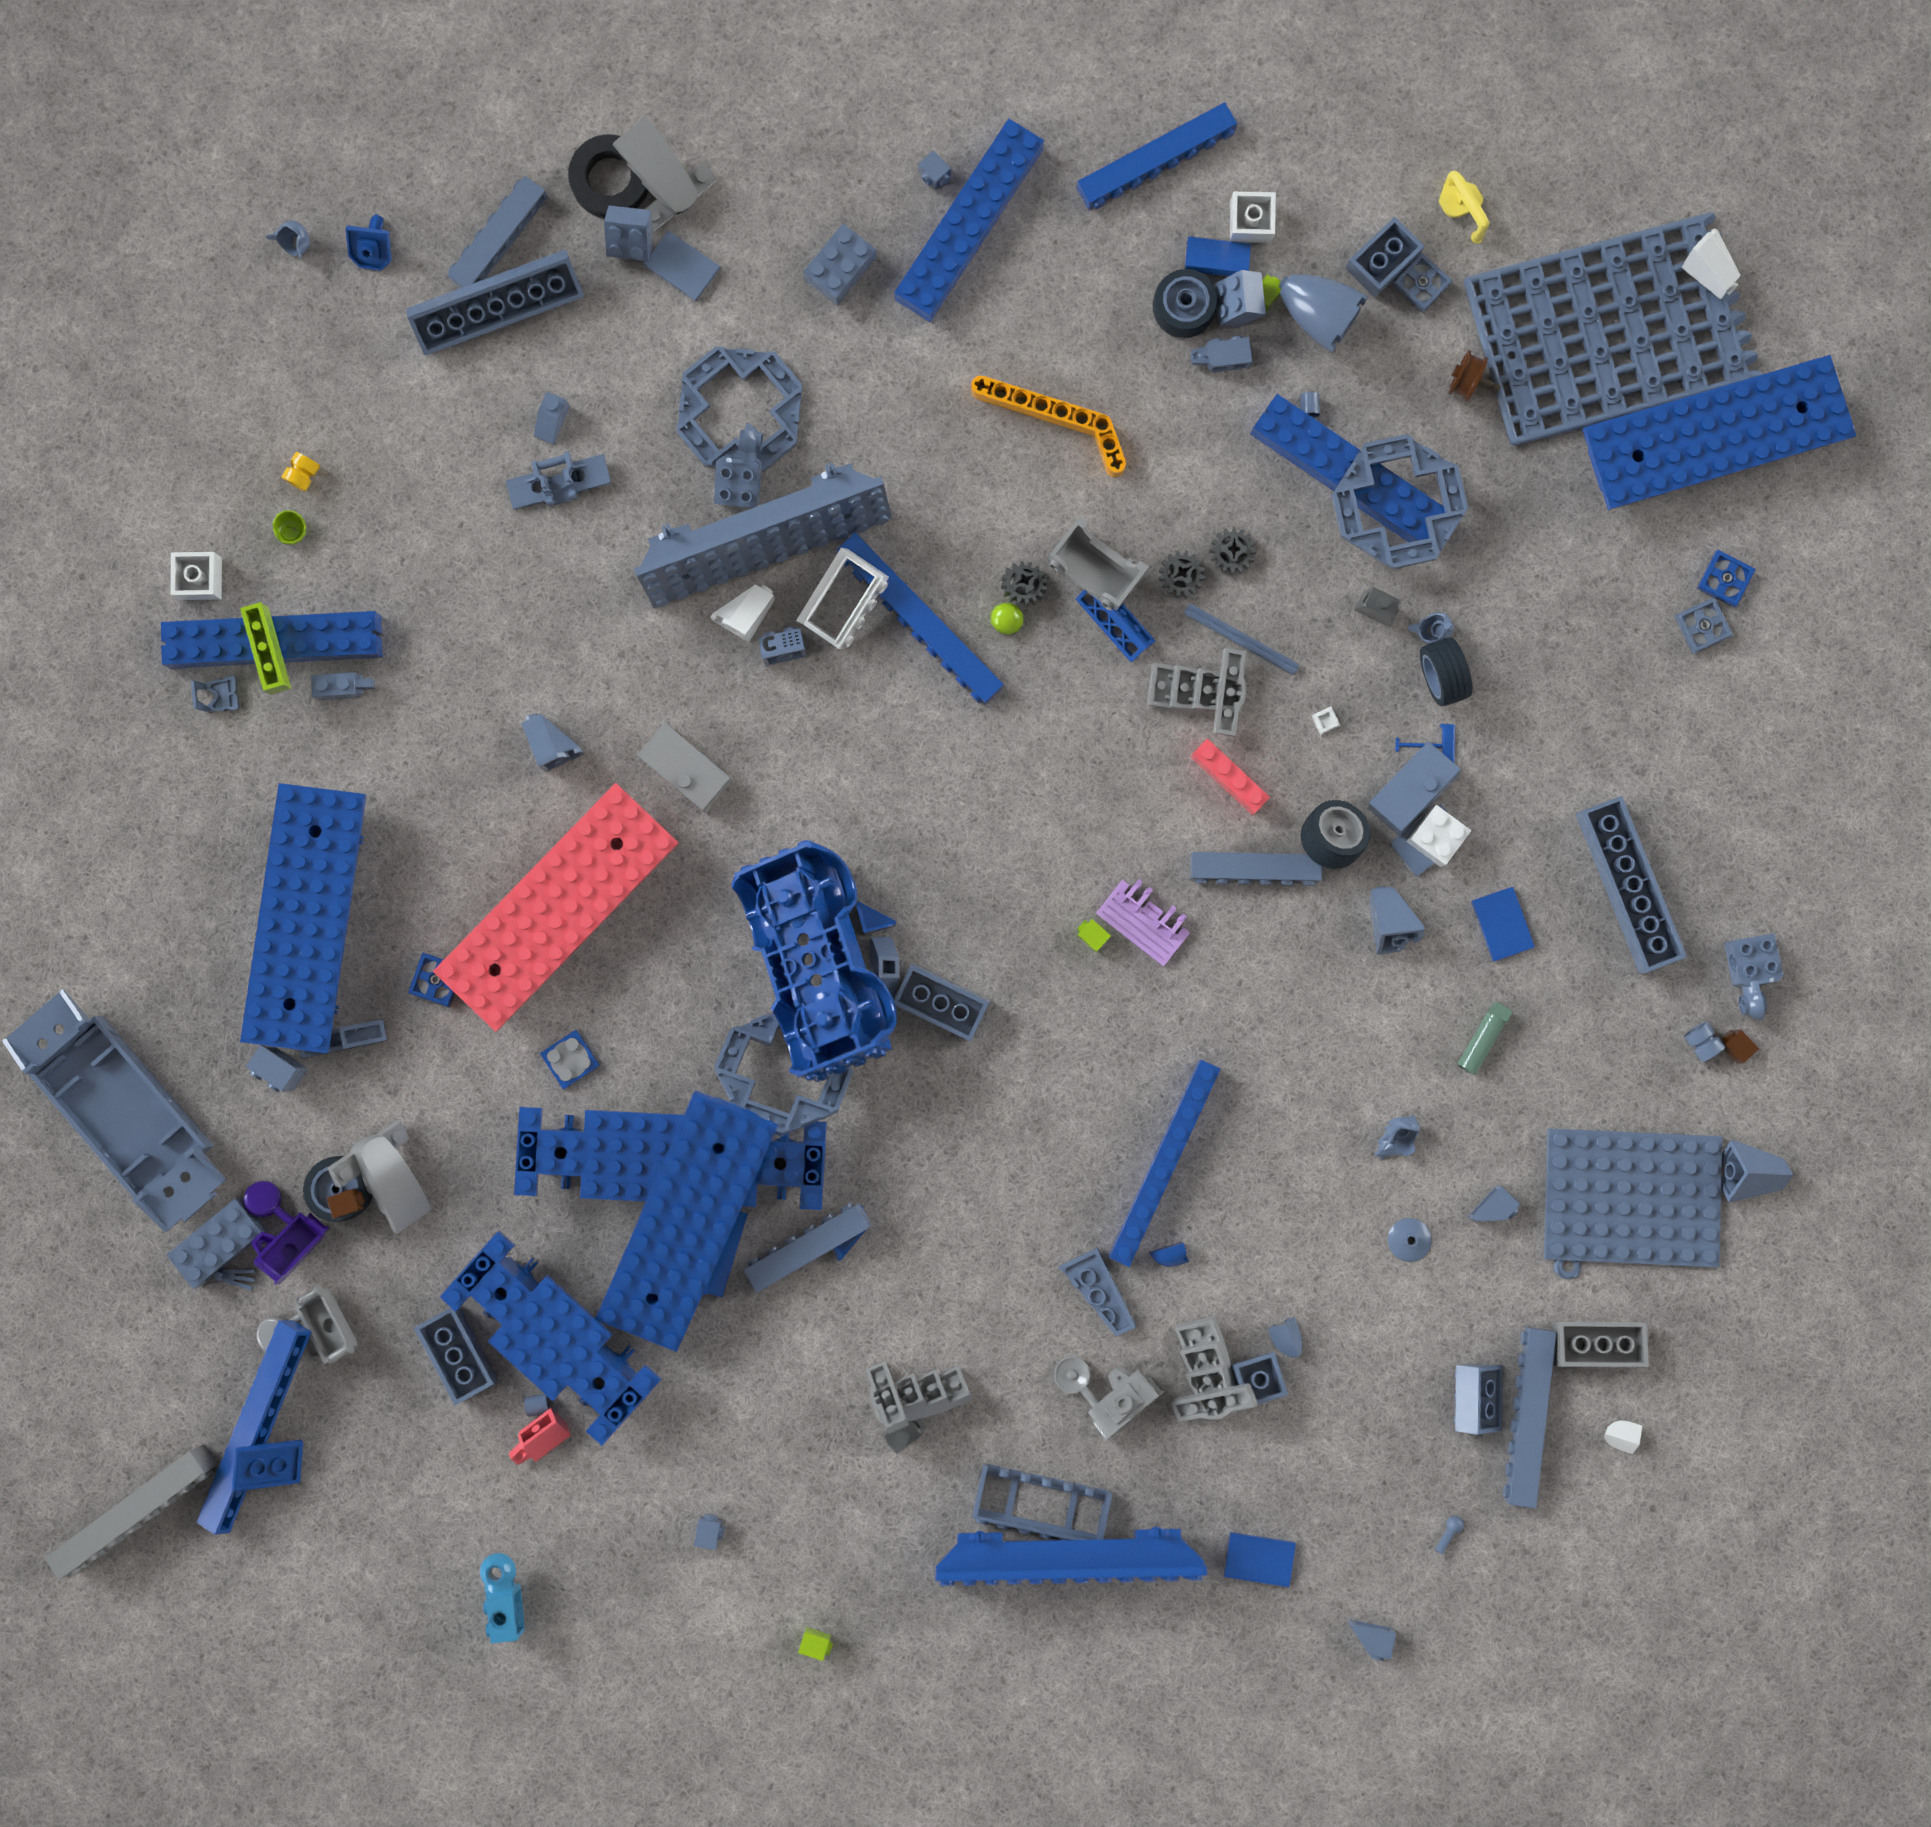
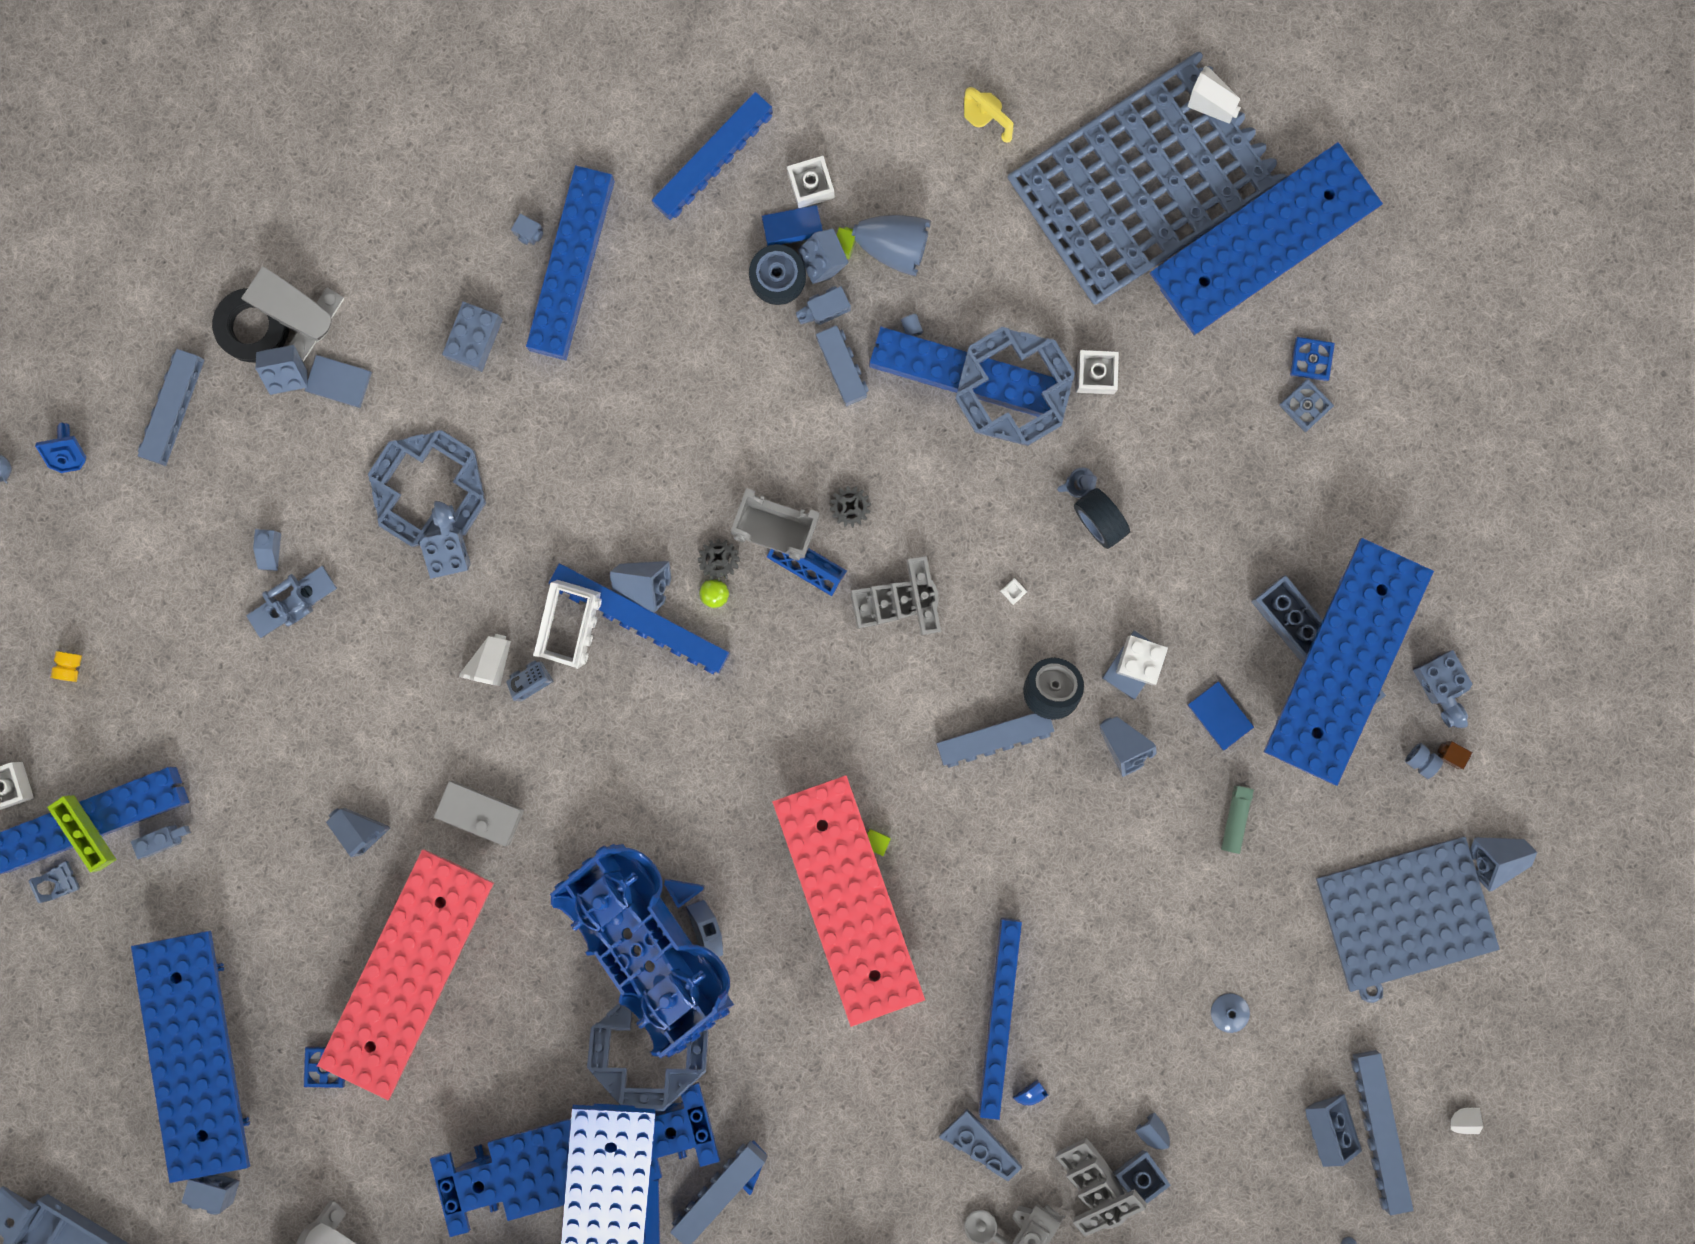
camera: 15 degrees left, 0 degrees up
(284, 524) = (67, 718): lime hair -> none
(352, 1037) = (270, 1139): sand blue slope -> none
(494, 302) = (185, 467): sand blue brick -> none
(569, 1059) = (462, 1097): light grey piece -> none
(829, 510) = (425, 635): sand blue piece -> none
(935, 581) = (642, 582): none -> sand blue slope
(941, 1002) = (764, 943): sand blue brick -> none
(1046, 983) = (848, 901): none -> coral piece
(1049, 415) = (693, 406): light orange beam -> none
(1142, 924) = (914, 818): lavender hinge -> none
(1221, 422) = (841, 365): none -> sand blue brick
(1230, 777) = (948, 667): coral brick -> none
(1241, 639) = (919, 545): sand blue axle -> none
(1242, 550) = (875, 476): dark grey gear -> none
(1378, 606) = (1026, 479): dark grey torso -> none
(1384, 257) = (934, 180): sand blue brick -> none
(1399, 1137) = (1192, 929): sand blue hair -> none
(1414, 789) = (1107, 626): sand blue brick -> none
(1422, 282) = (973, 190): sand blue piece -> none
(1447, 745) = (1124, 579): blue piece -> none
(1469, 375) = (1039, 258): reddish brown wheel -> none
(1491, 517) = (1097, 372): none -> white brick
(1495, 1206) = (1293, 962): sand blue slope -> none
(1601, 1344) = (1422, 1051): light grey brick -> none
(1659, 905) = (1348, 661): none -> blue piece

